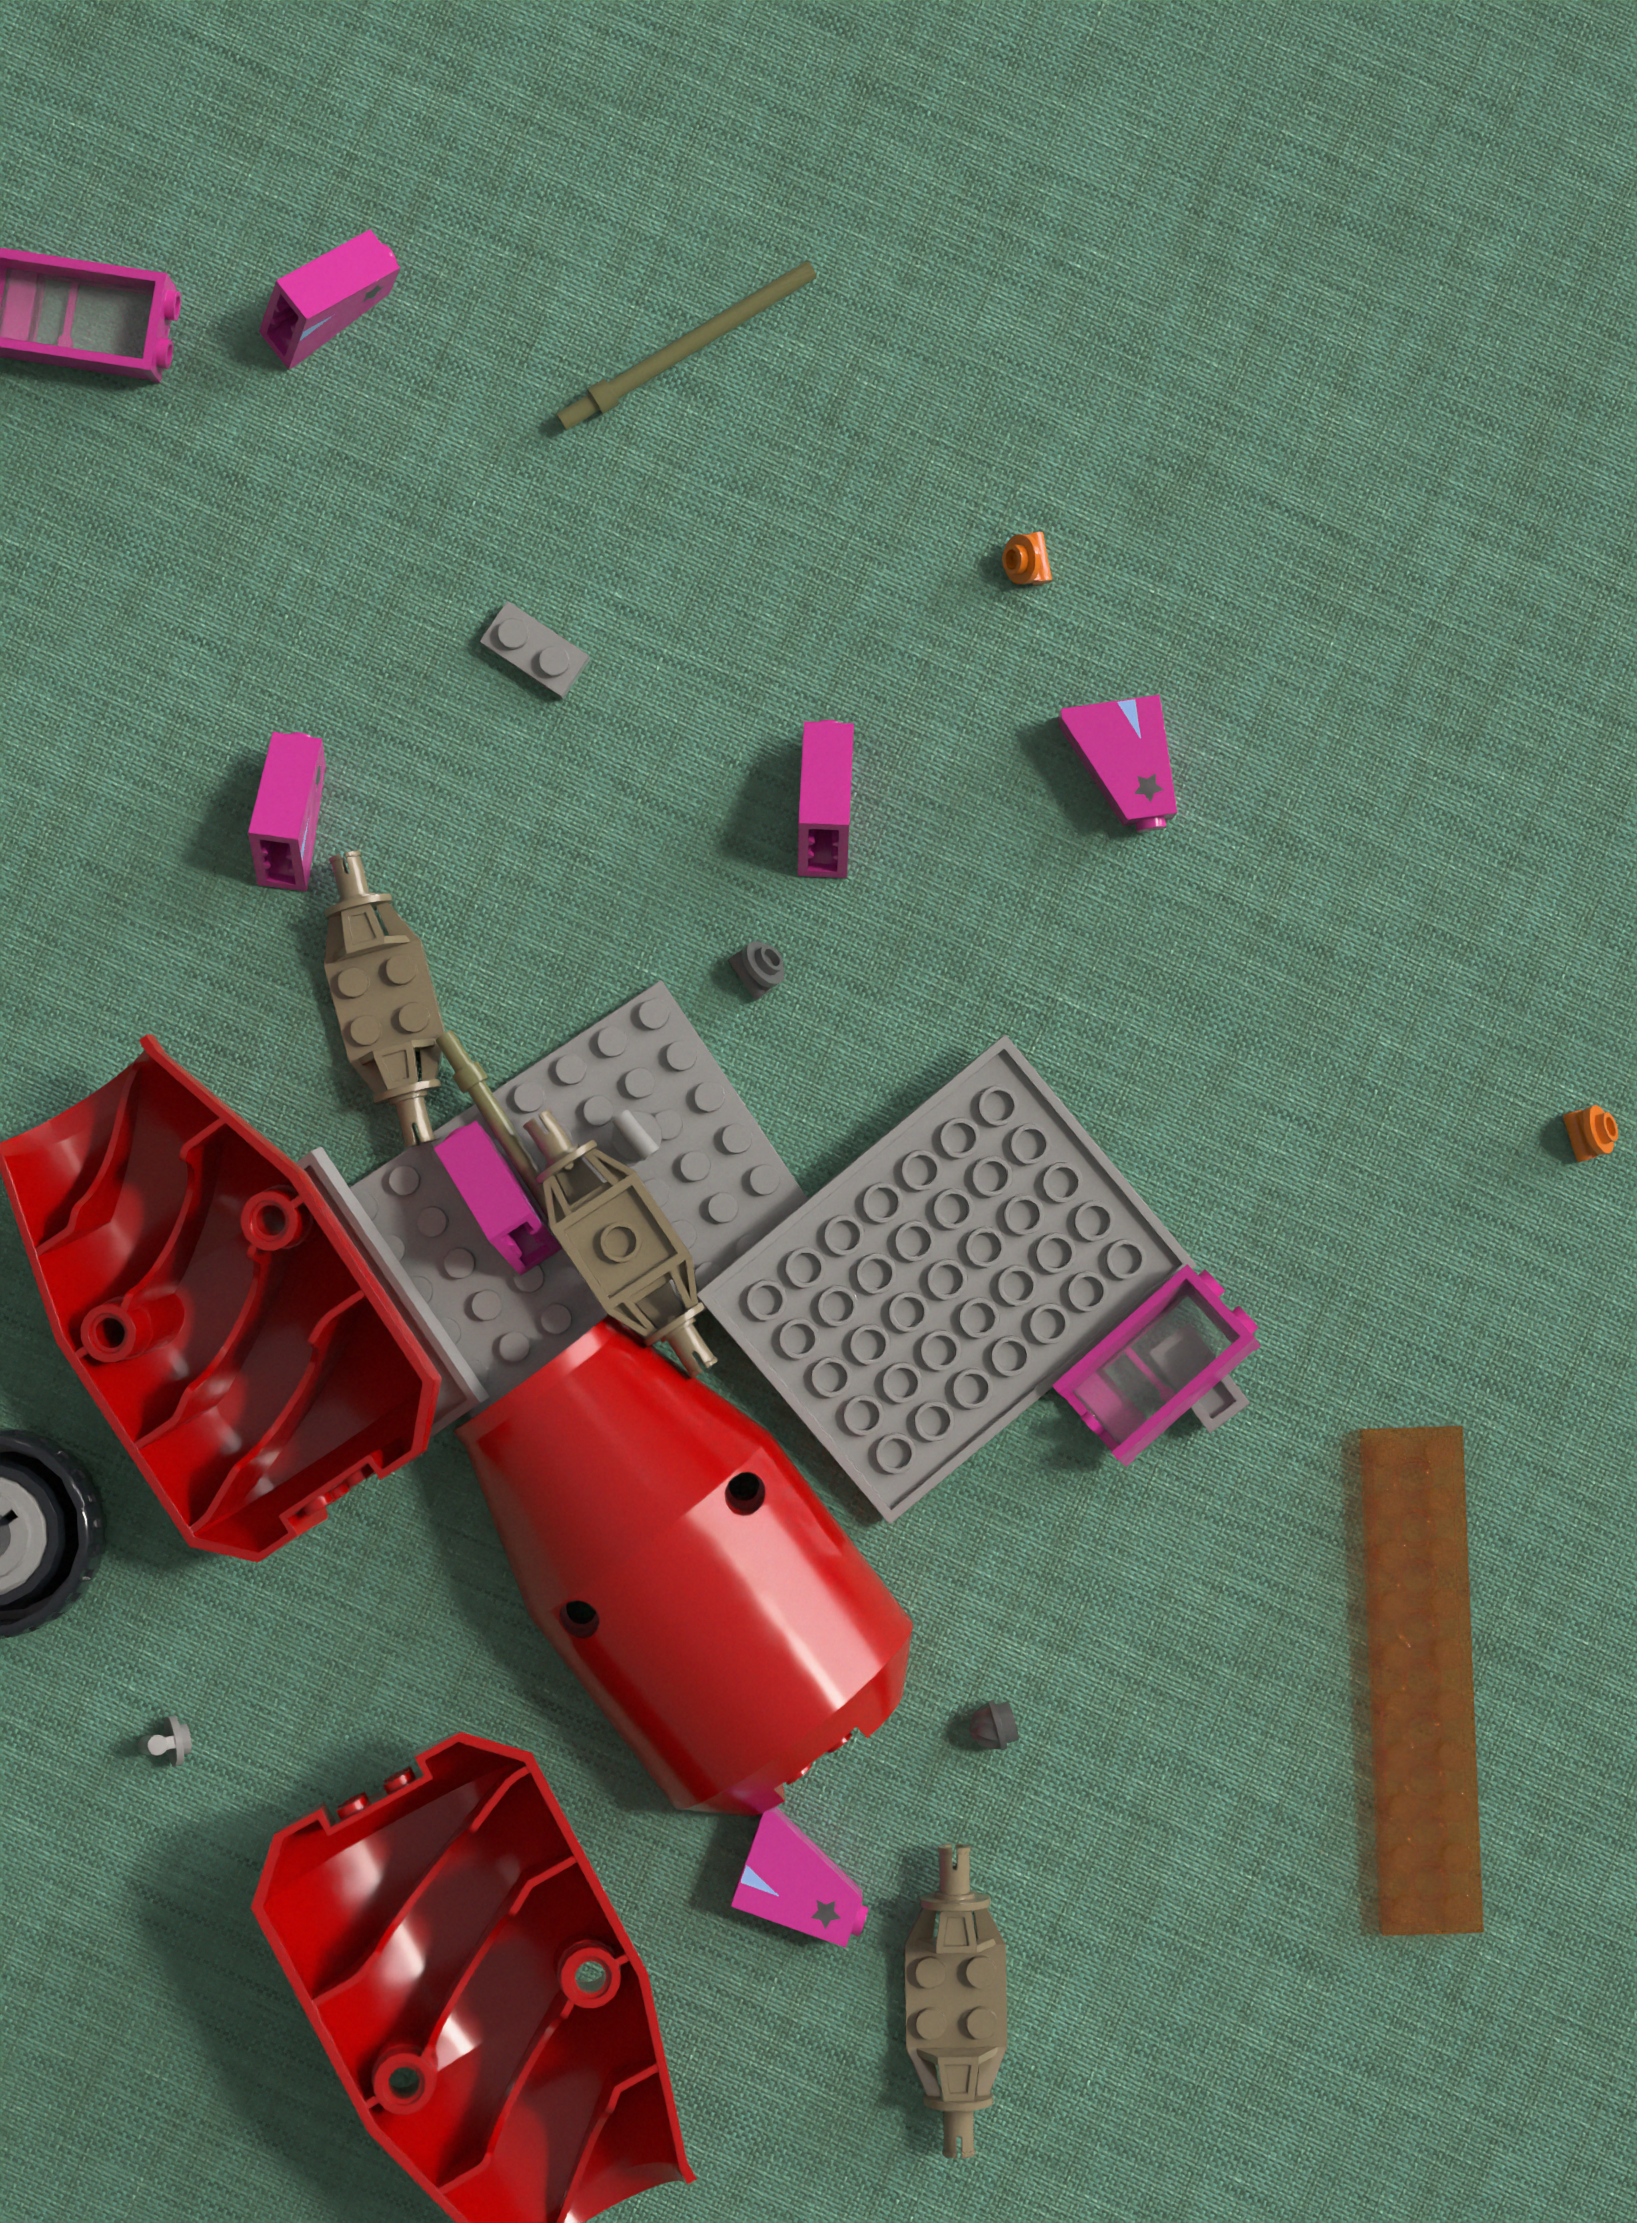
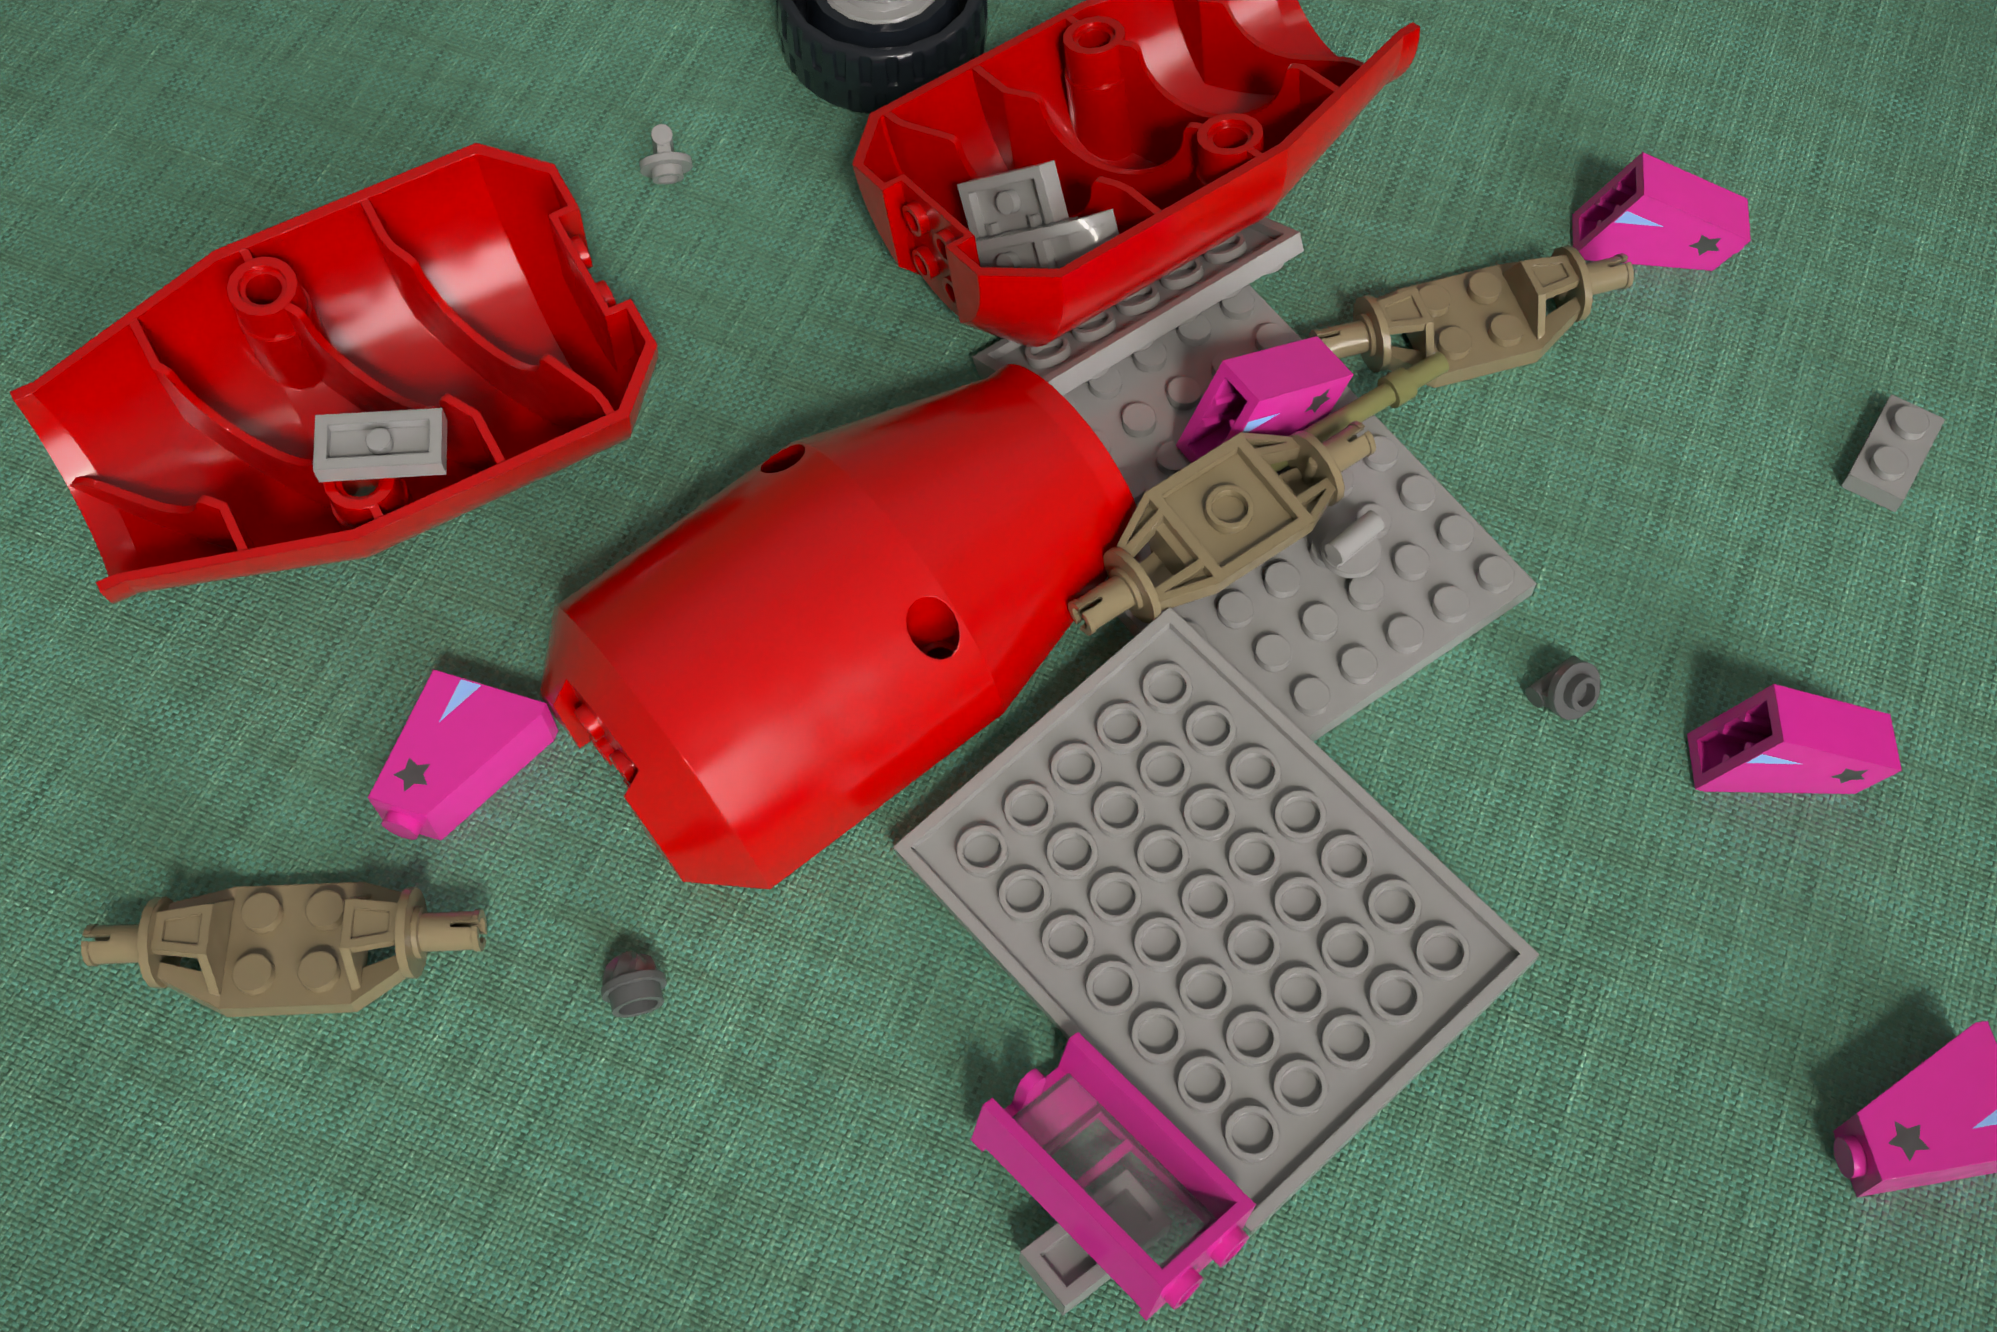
camera: 85 degrees right, 25 degrees down
(339, 1410) = (1025, 221): none -> light grey plate
(571, 1960) = (380, 445): none -> light grey plate

